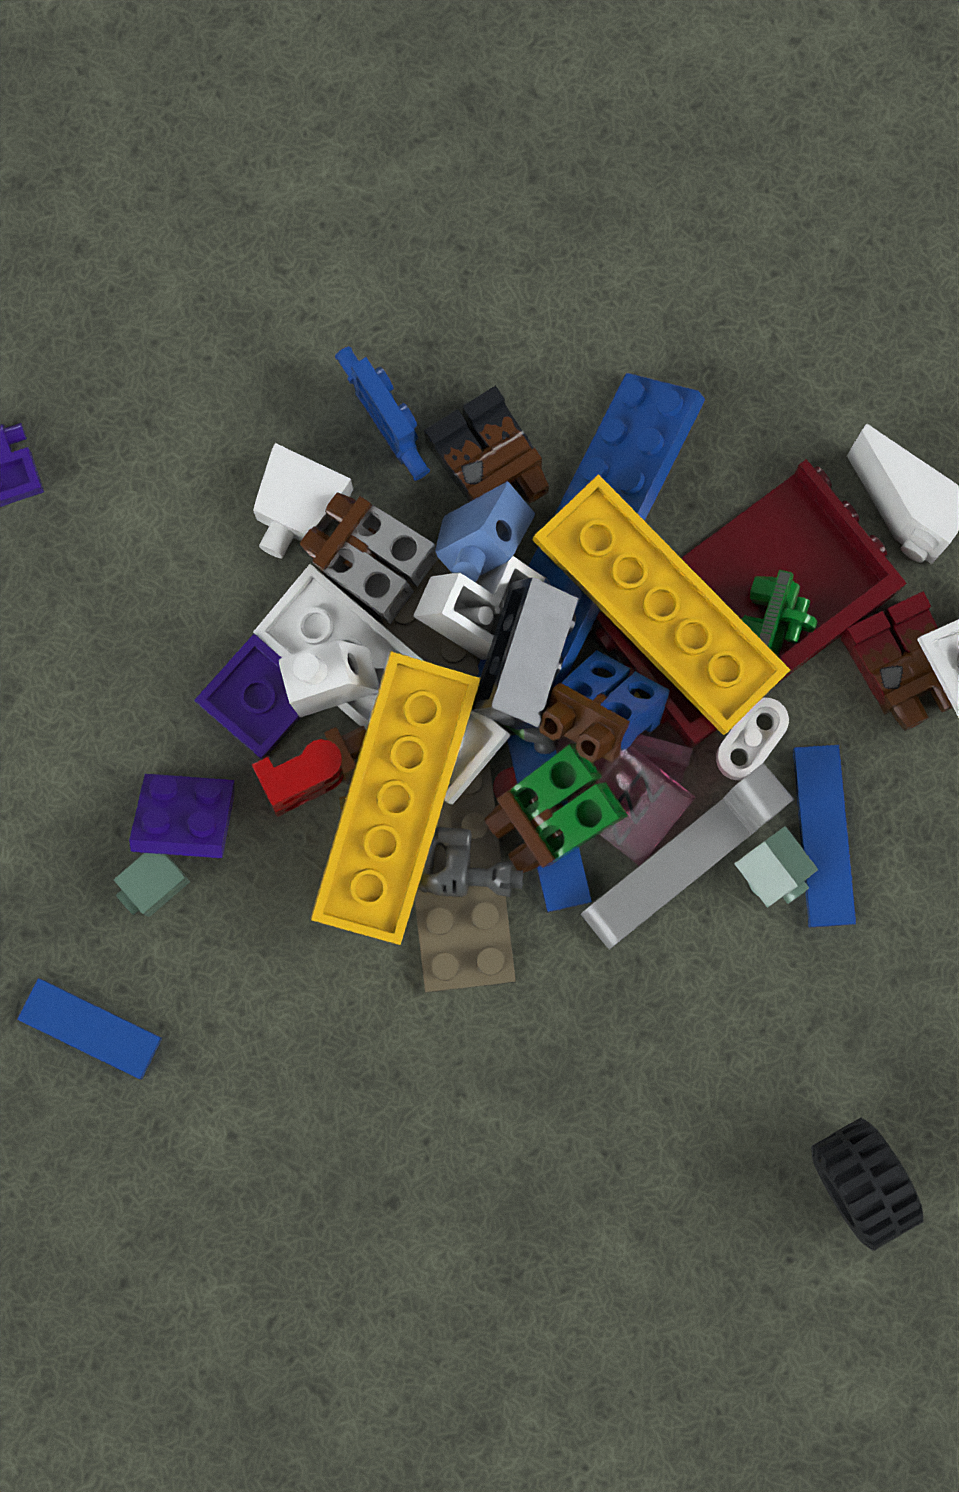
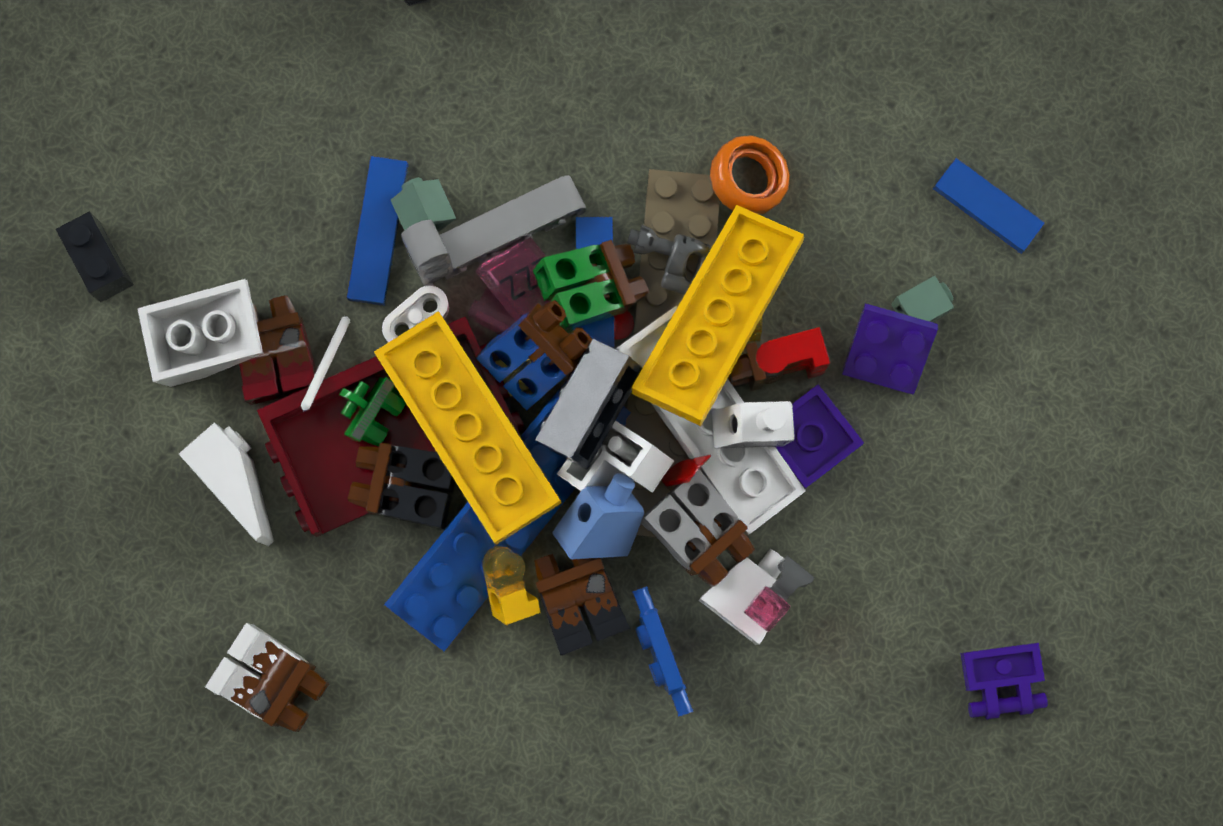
camera: 175 degrees left, 0 degrees up
(272, 481) = (771, 602): none -> leg
(355, 996) = (763, 153): none -> orange wheel
(398, 612) = (684, 471): none -> red piece
(567, 439) = (506, 587): none -> leg
(718, 535) = (393, 483): none -> black hips
(814, 304) = (277, 688): none -> hips
(842, 656) = (325, 363): none -> white axle

